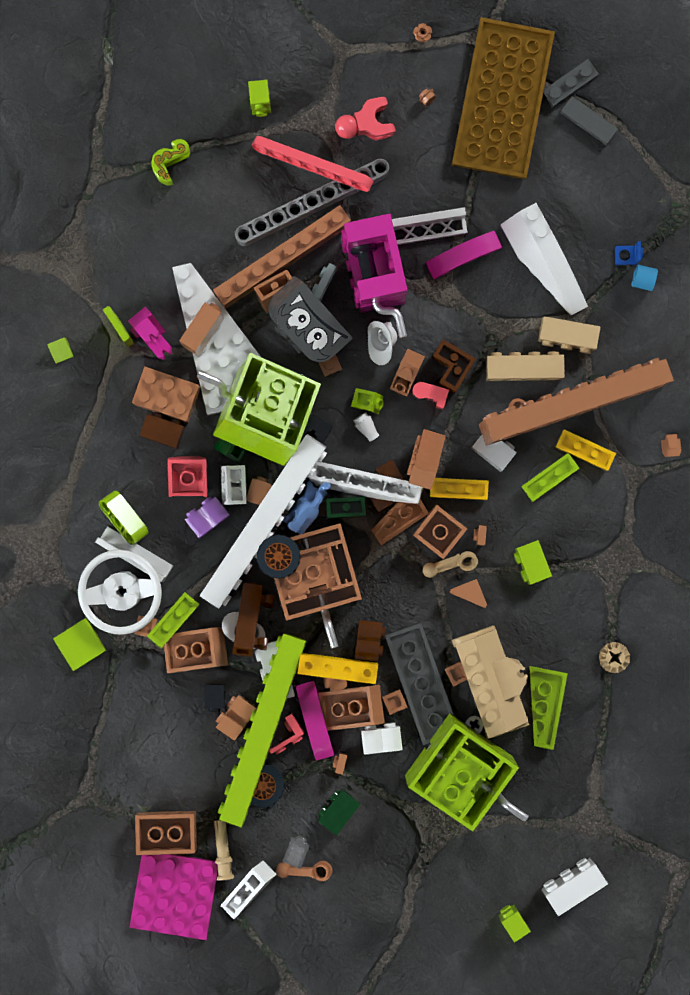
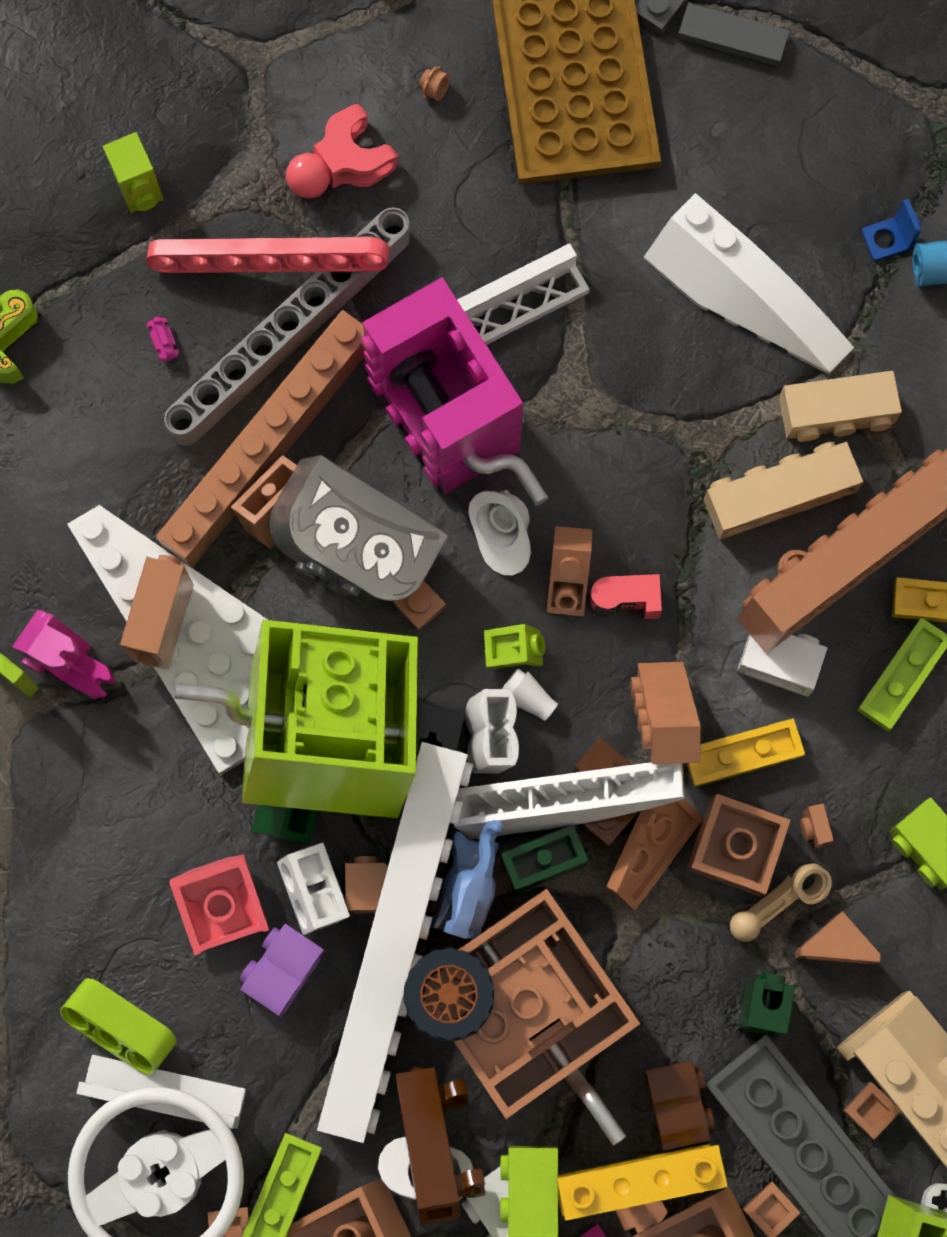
camera: 20 degrees left, 10 degrees down
(162, 431) = (143, 832): reddish brown brick -> none
(166, 394) = (129, 761): nougat brick -> none
(247, 188) = (162, 339): none -> dark pink piece
(326, 276) = (359, 444): light aqua plate -> none
(343, 434) = (490, 723): none -> white brick
(425, 612) = (767, 1005): none -> dark green brick
(457, 363) = (653, 519): reddish brown brick -> none
(463, 254) = (594, 329): dark pink slope -> none

